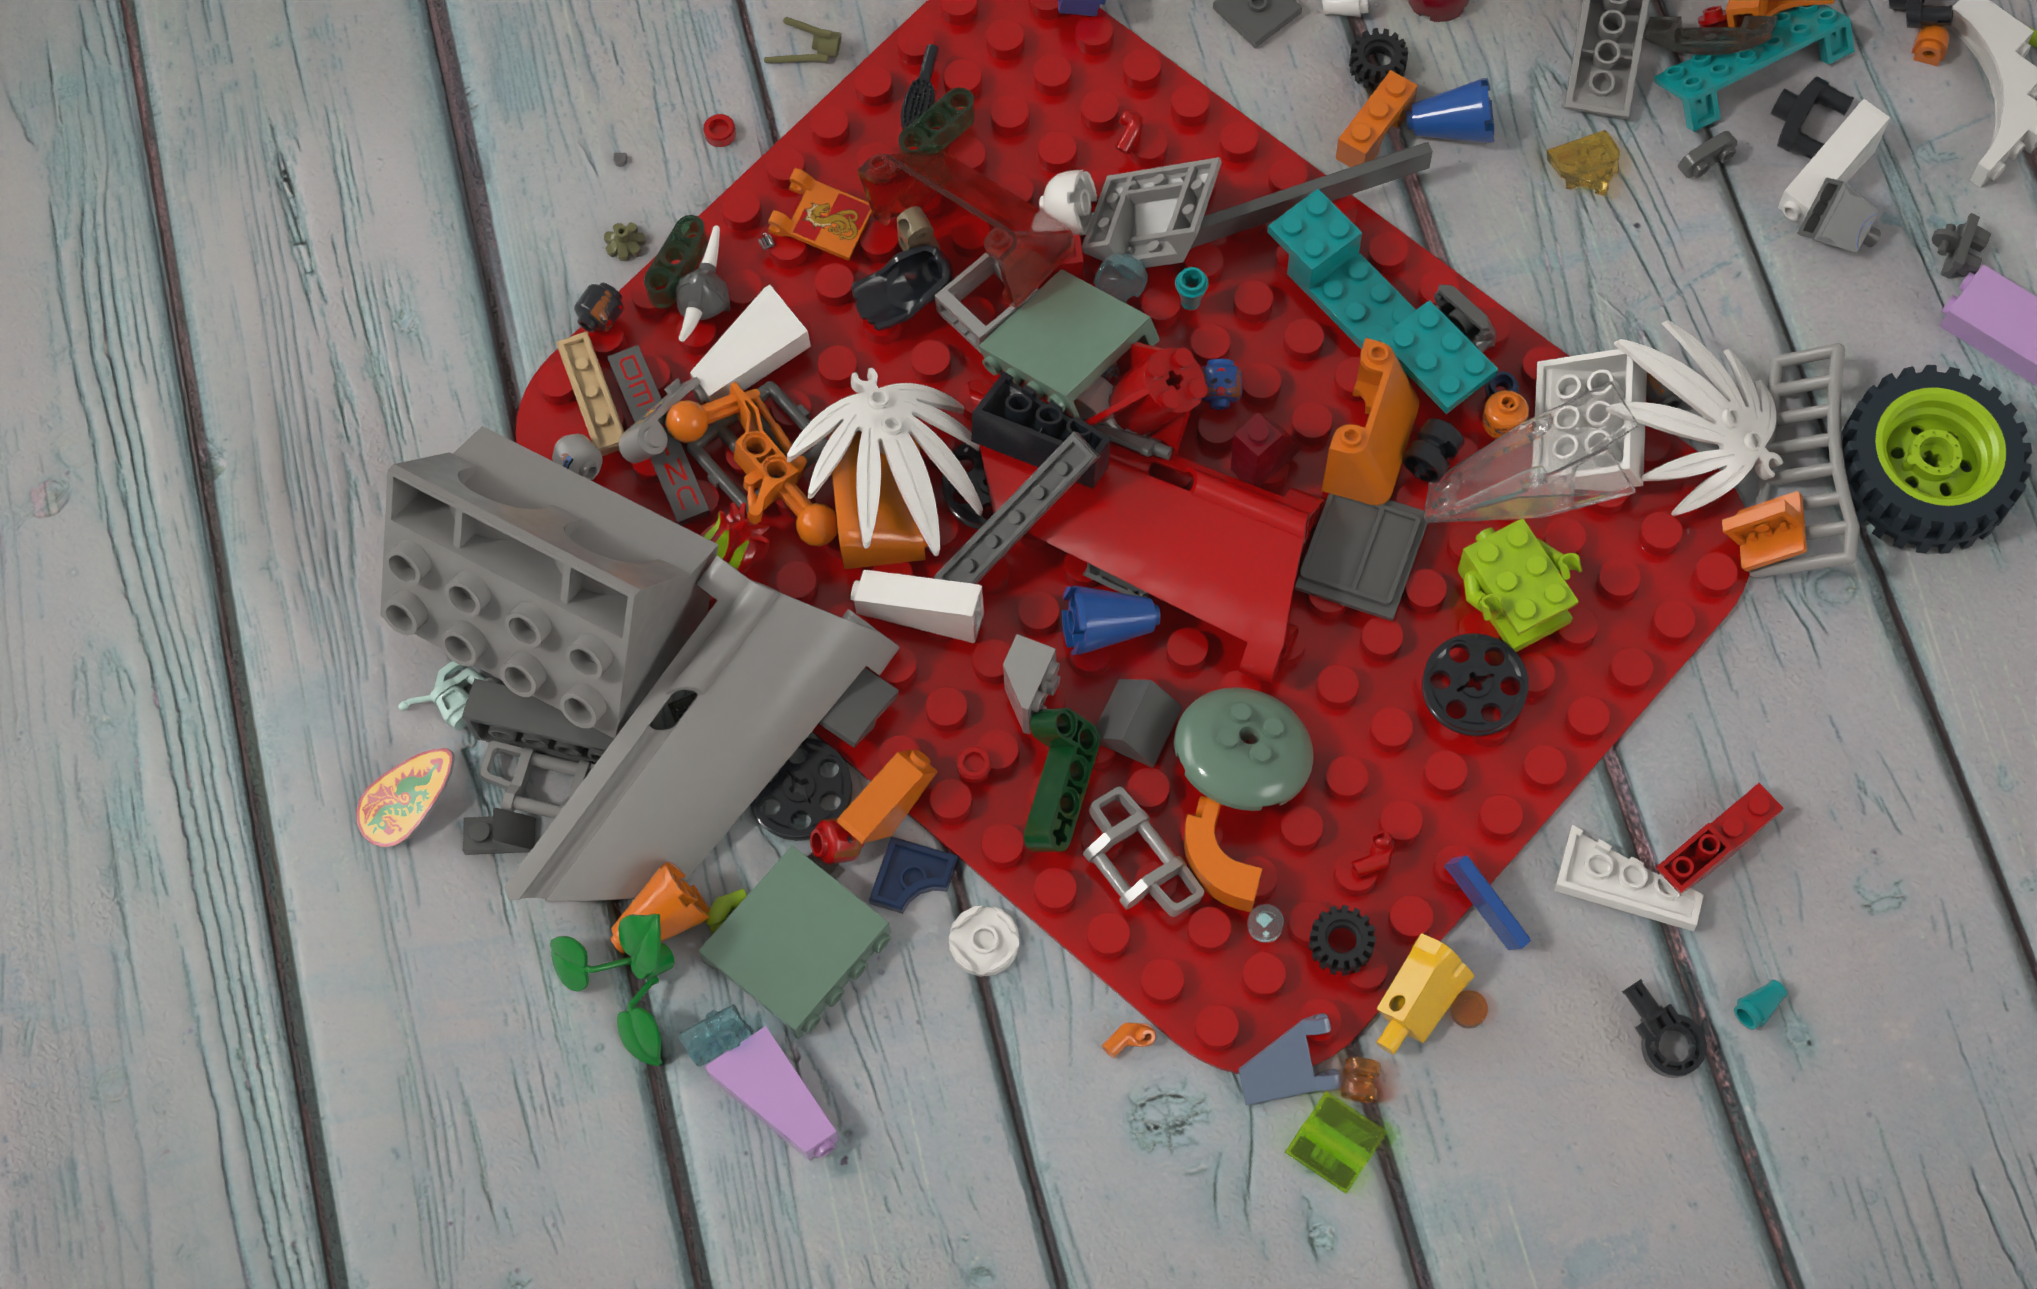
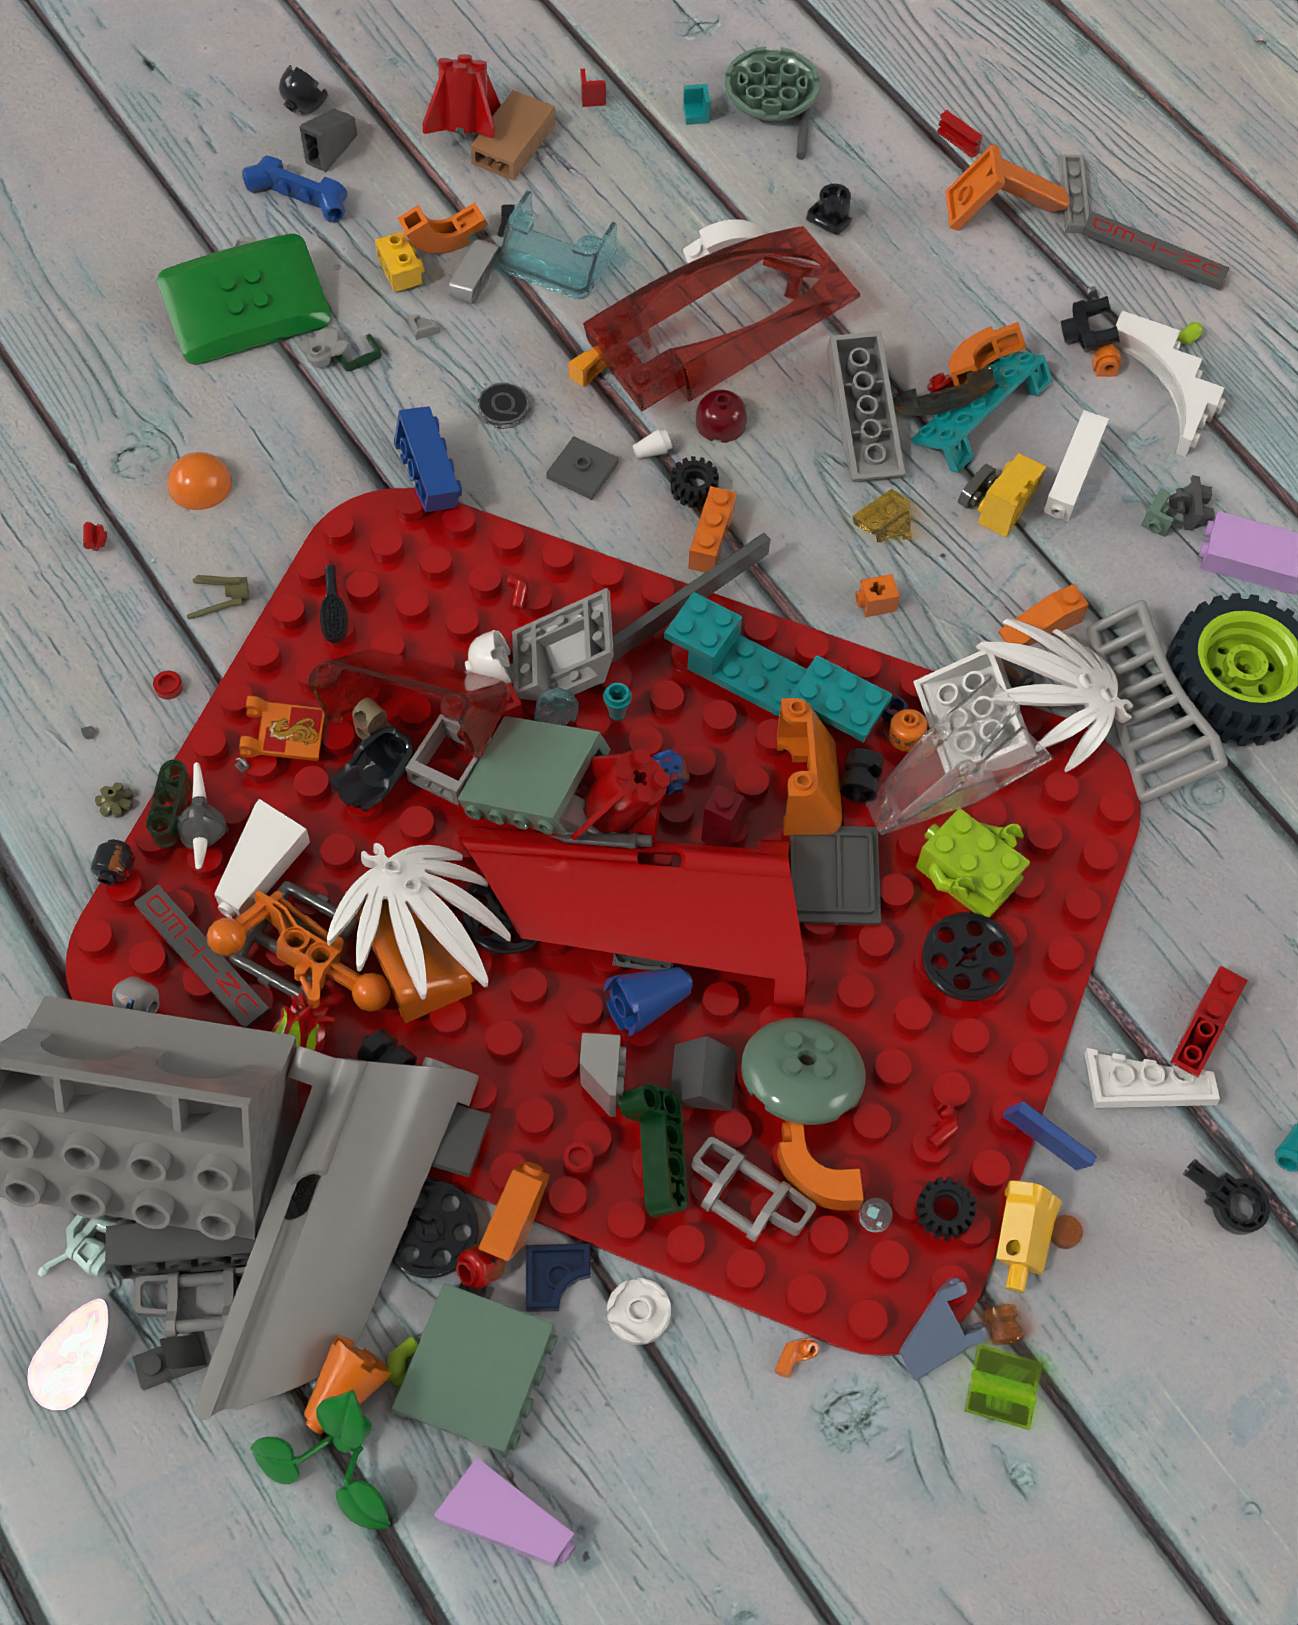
camera: 25 degrees left, 5 degrees down
(591, 392) = (130, 938): tan tile -> none
(647, 435) = (194, 959): light grey door -> none
(715, 1034) = (432, 1481): clear light blue hips -> none
(811, 588) = (384, 1048): none -> black wheel
(921, 603) = (483, 1032): white slope -> none
(942, 115) = (358, 619): beam -> none
(1020, 511) = (544, 932): dark grey tile -> none
(1030, 430) = (539, 856): black wedge -> none
(1455, 114) = (773, 507): blue cone -> none
(1466, 317) = (848, 658): dark grey slope -> none
(1538, 251) = (877, 595): none -> orange brick
(1738, 329) = (1056, 611): none -> orange slope
(1743, 174) = (1010, 494): none -> yellow wedge
(1769, 531) = (1146, 761): orange bracket -> none
(1795, 109) = (1028, 435): black connector -> none
(1840, 218) = (1098, 505): torso -> none
(1910, 246) = (1156, 517): none -> sand green bracket

